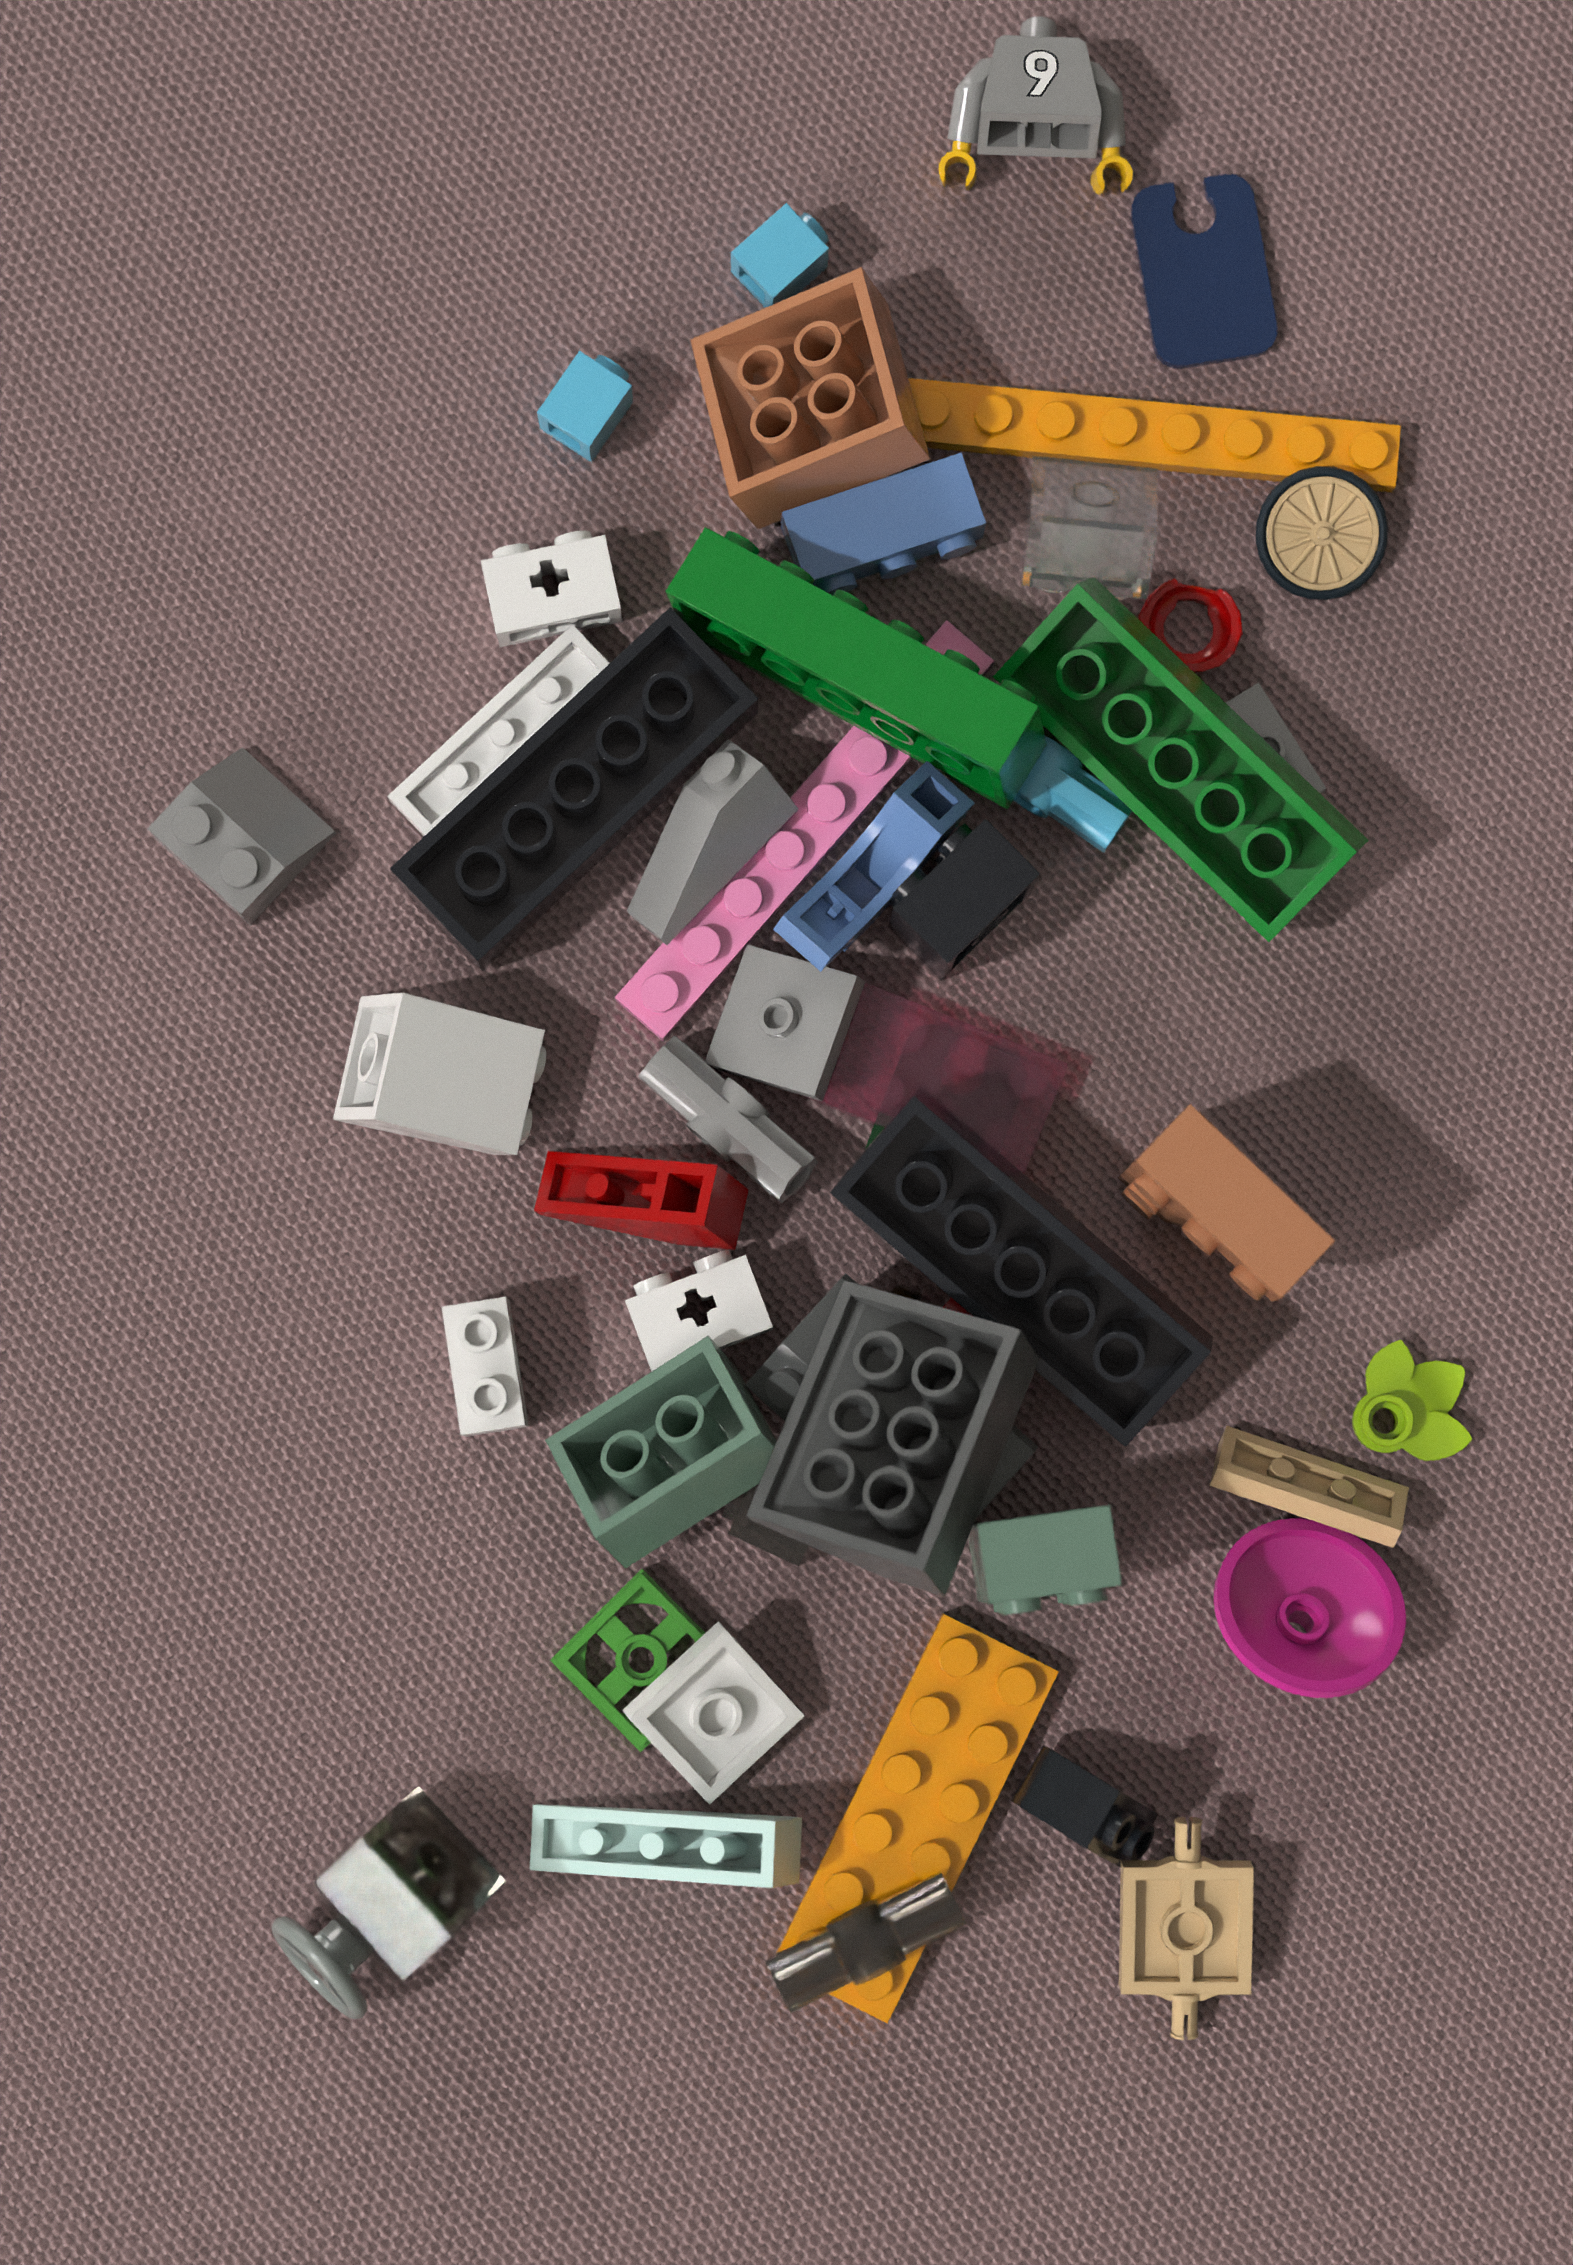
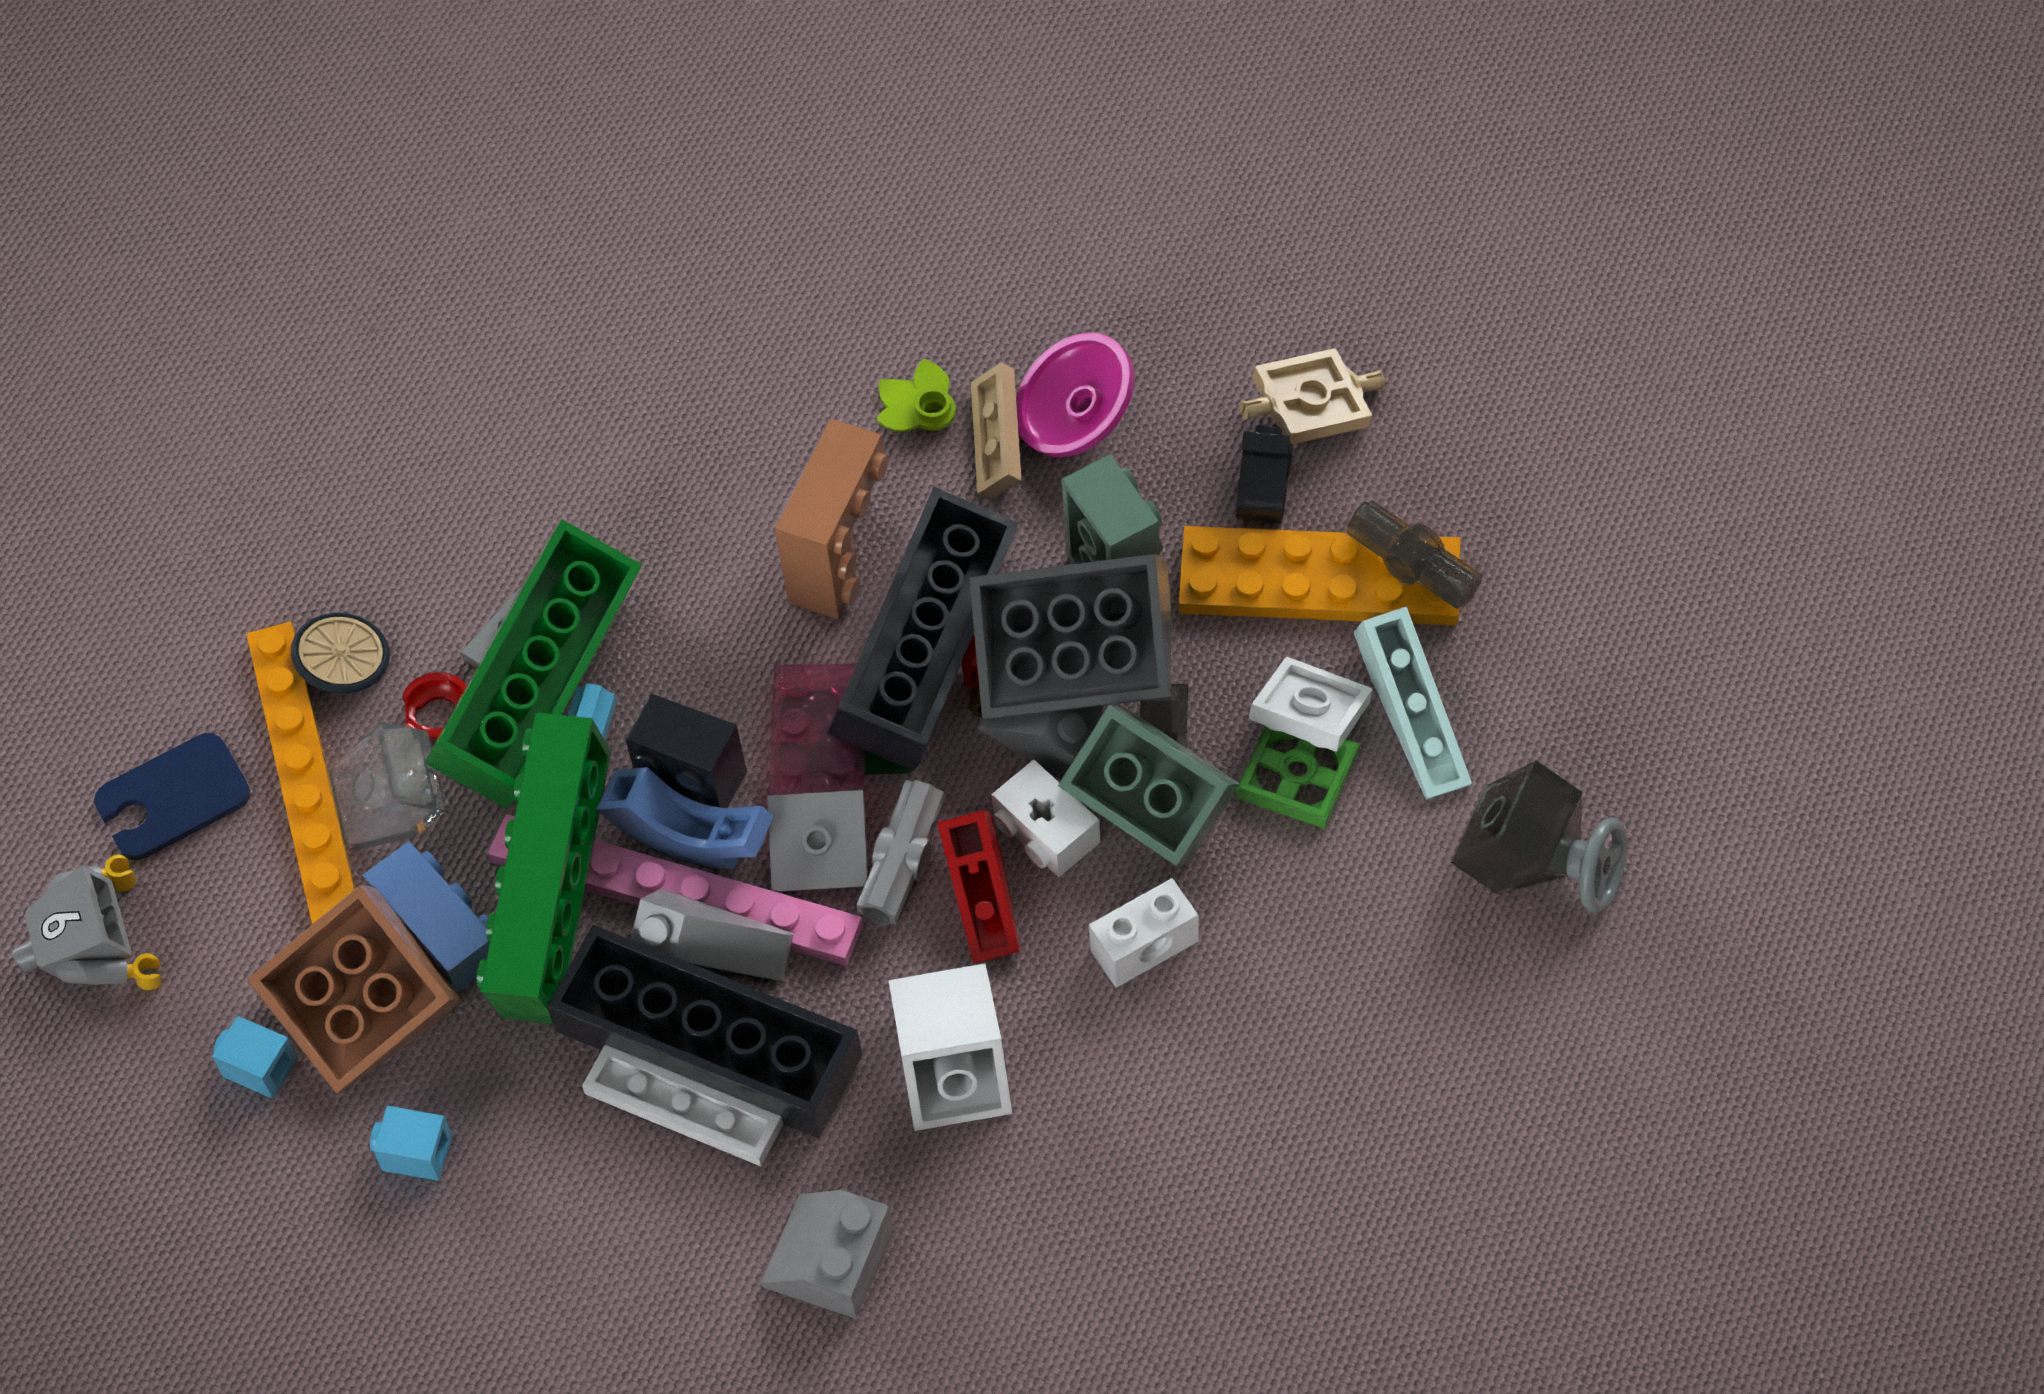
camera: 100 degrees left, 25 degrees down
(517, 593) = (553, 1087): white brick -> none

